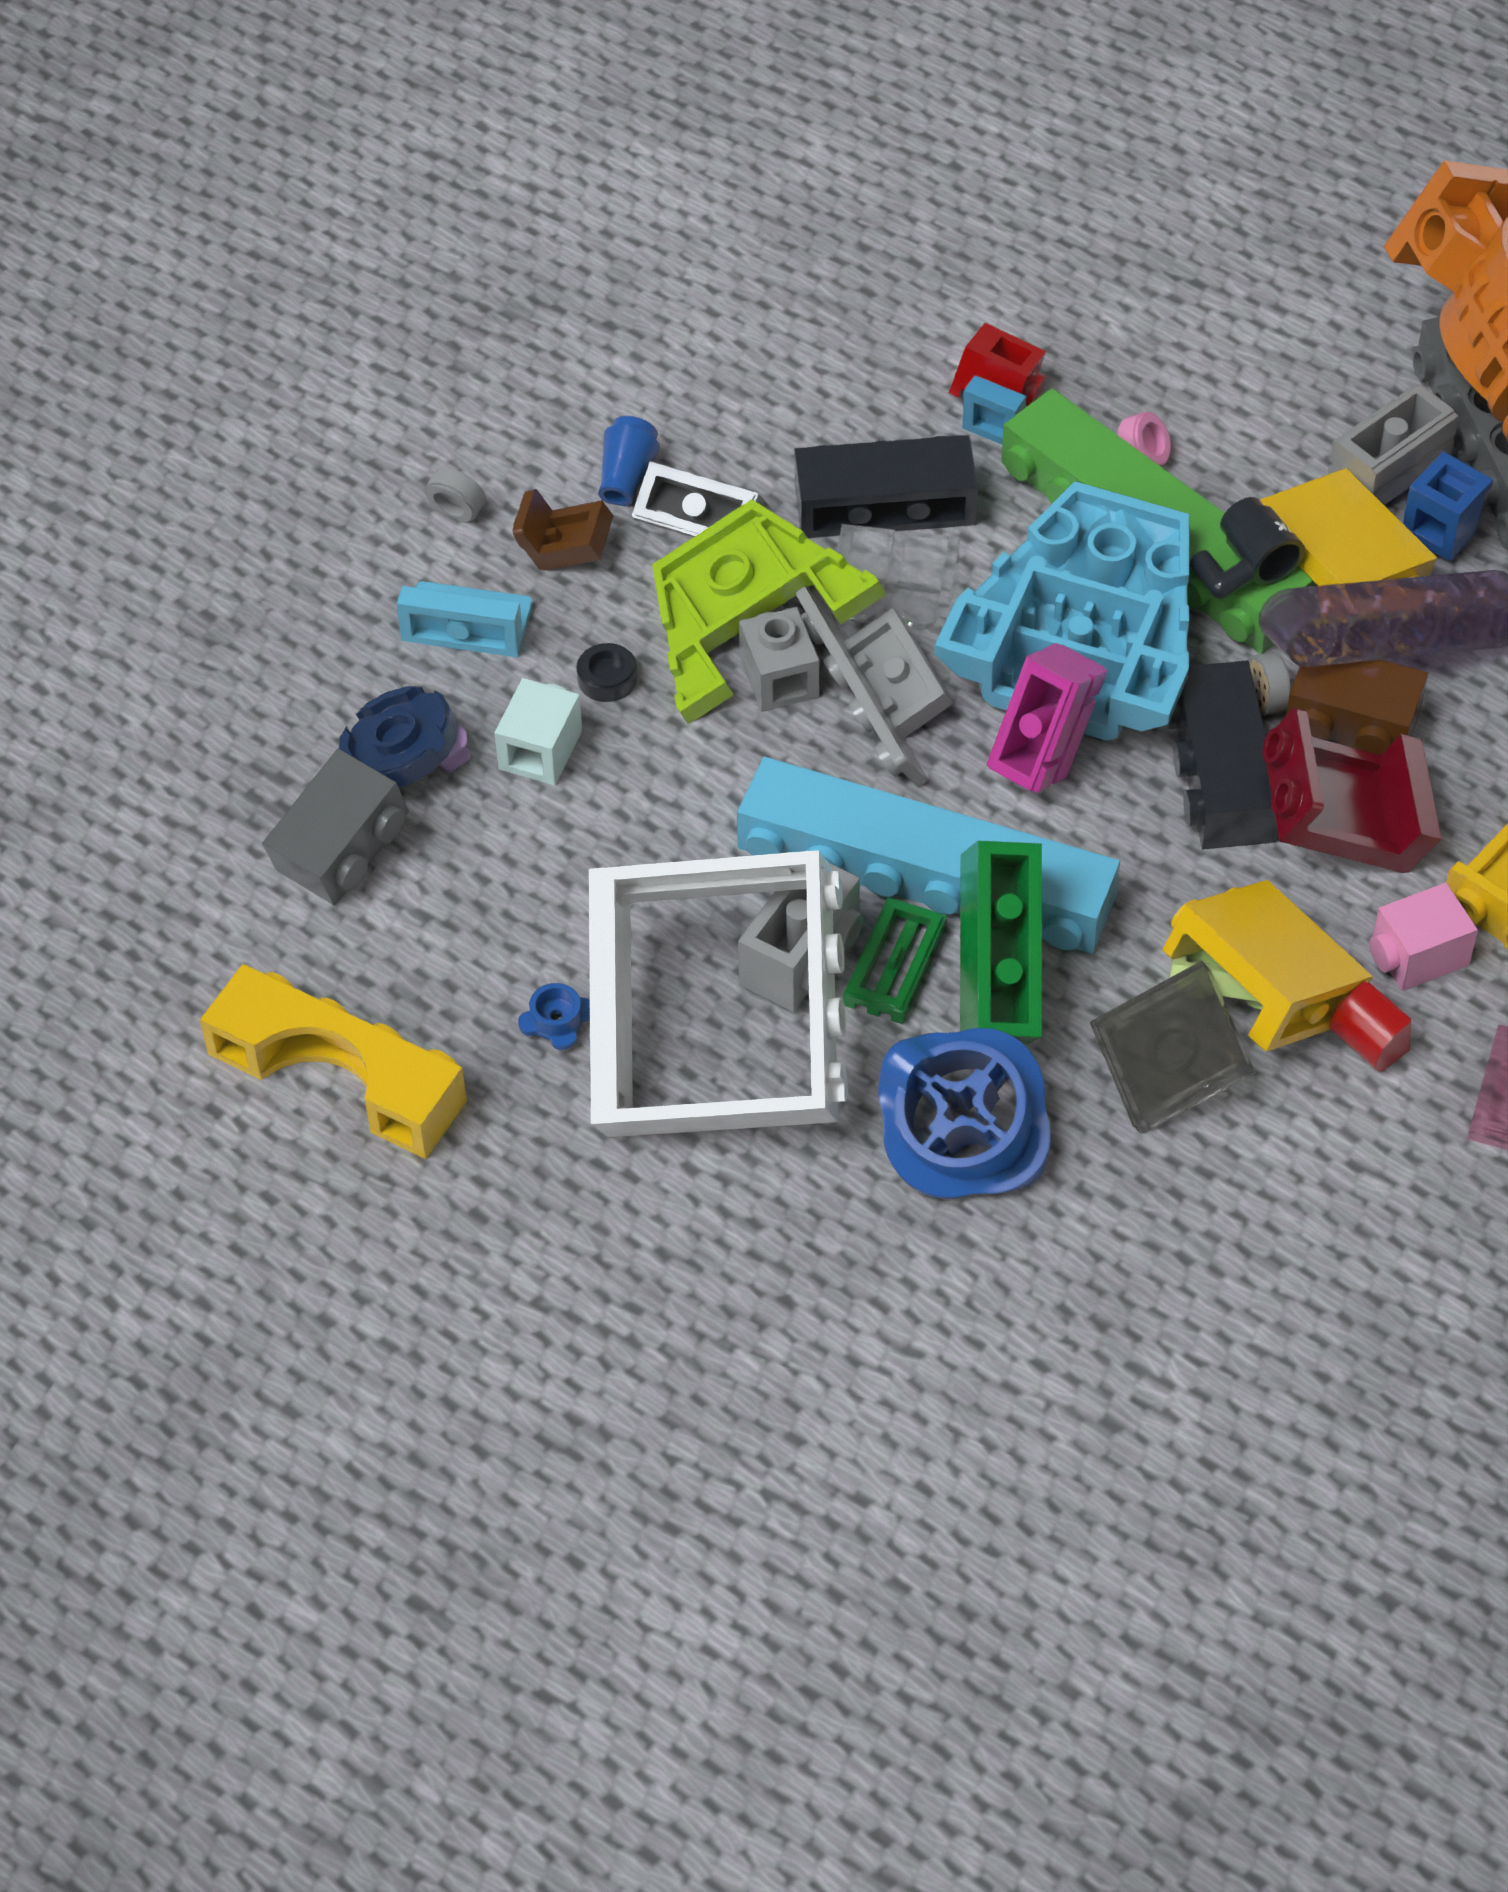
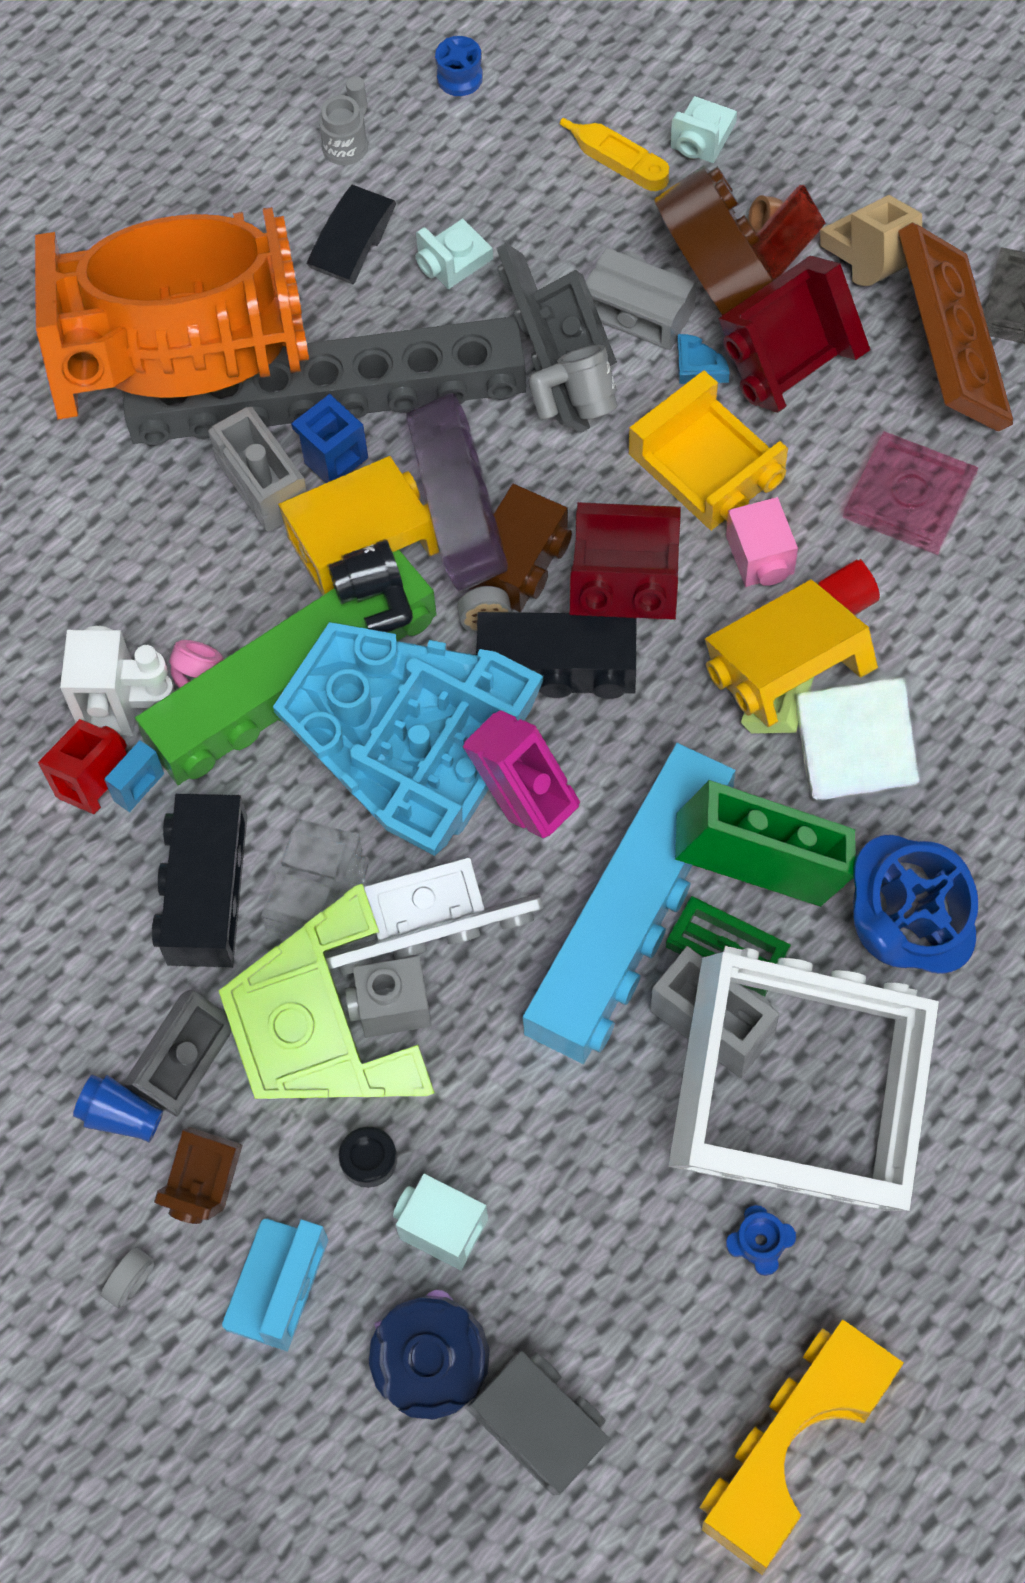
camera: 80 degrees left, 10 degrees up
(1089, 351) = (105, 683): none -> white brick

